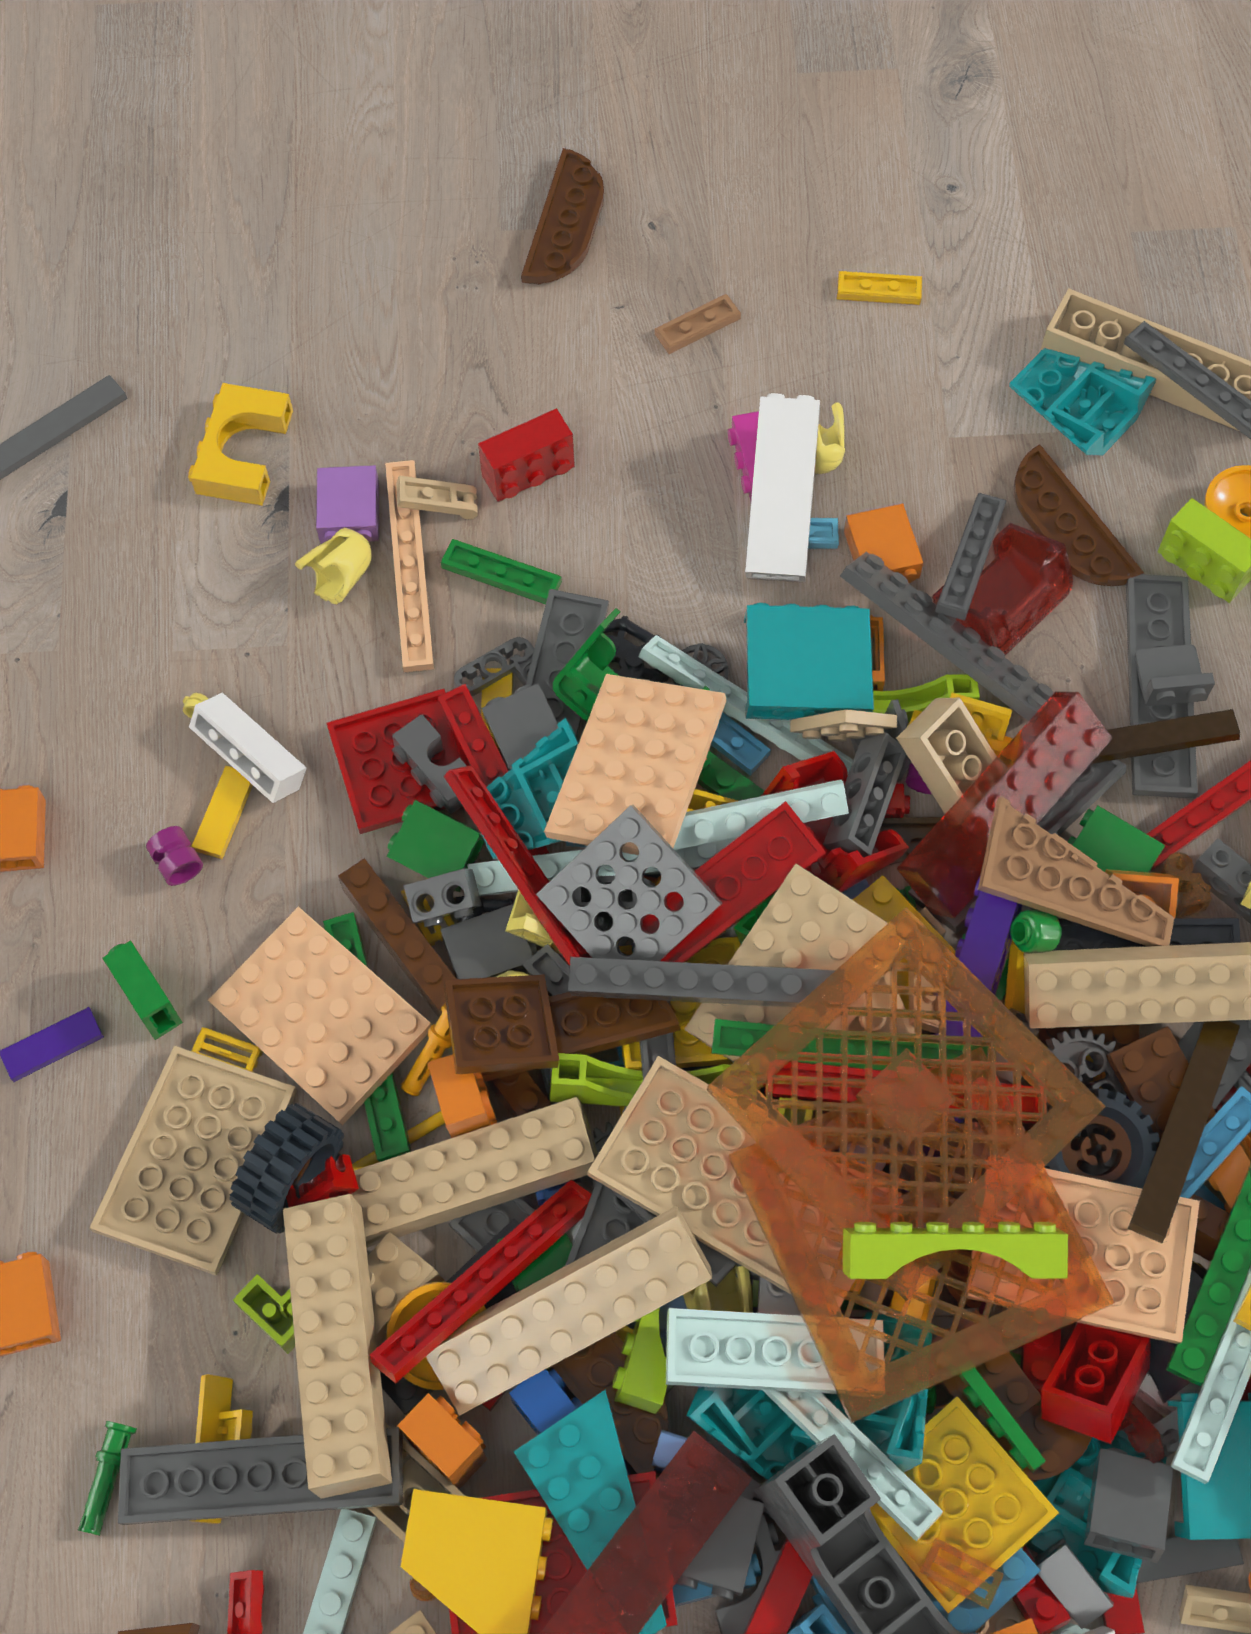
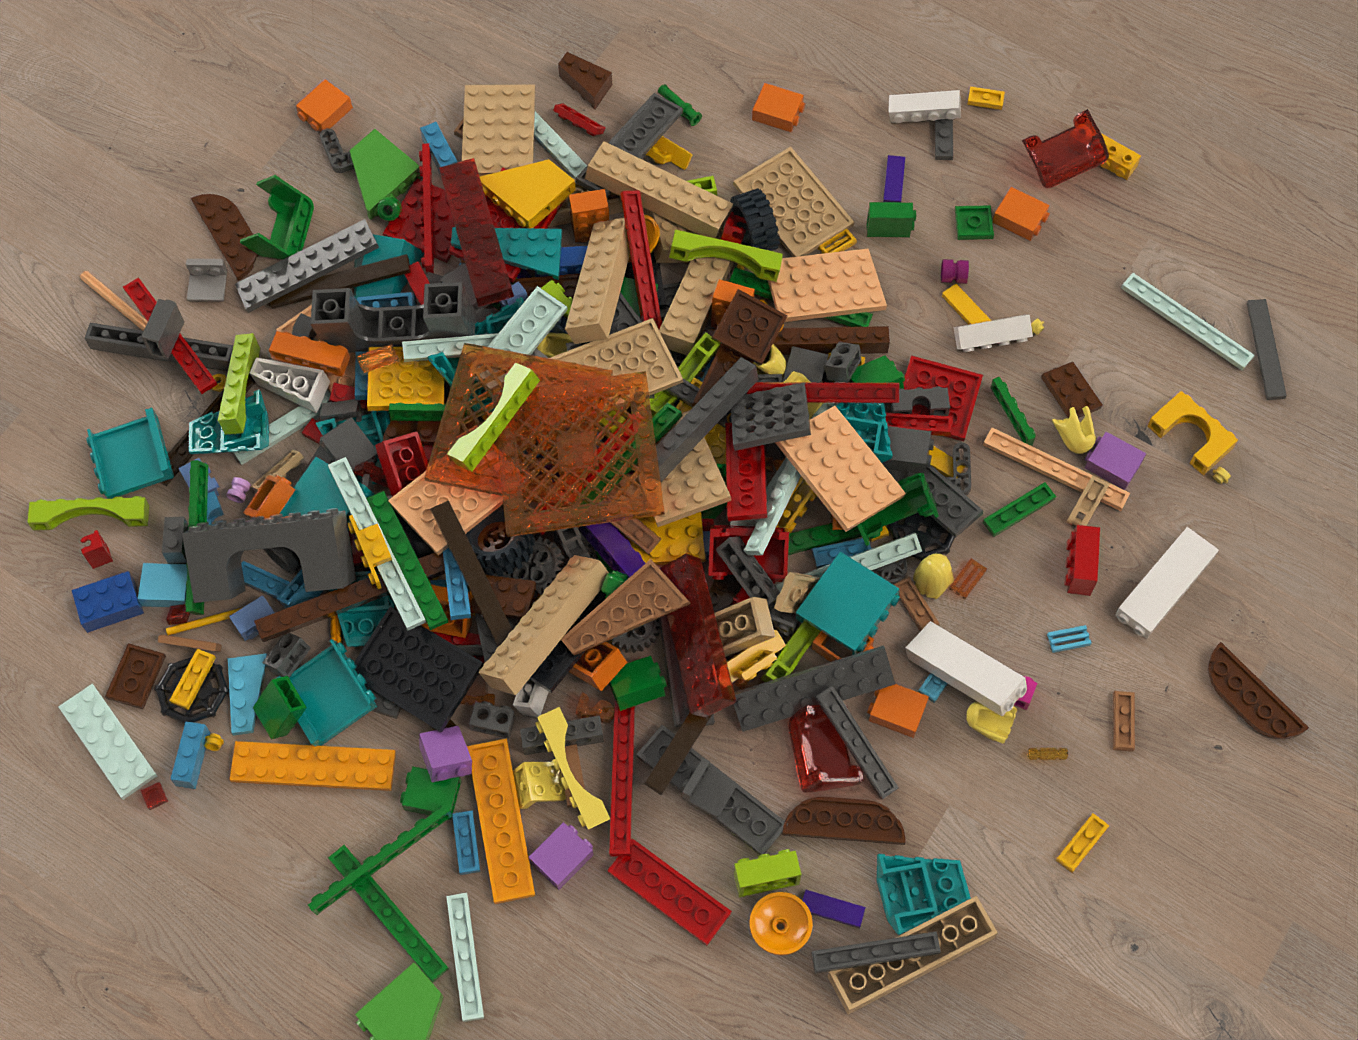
camera: 125 degrees right, 0 degrees up
(61, 888) = (974, 222): none -> green tile
(63, 538) = (1187, 321): none -> light aqua plate
(273, 610) = (1071, 389): none -> reddish brown plate
(283, 384) = (1221, 475): none -> light yellow plate
(359, 1101) = (691, 246): none -> lime arch
(364, 649) = (1013, 413): none -> green plate
(483, 365) = (1166, 583): none -> white brick
(641, 425) = (1085, 635): none -> medium azure tile
(643, 581) = (959, 591): none -> clear orange tile
(678, 605) = (933, 575): none -> light yellow hair
(728, 611) = (915, 604): none -> medium nougat tile
(803, 372) = (1048, 753): none -> clear yellow axle
(1174, 472) = (834, 909): none -> dark purple tile

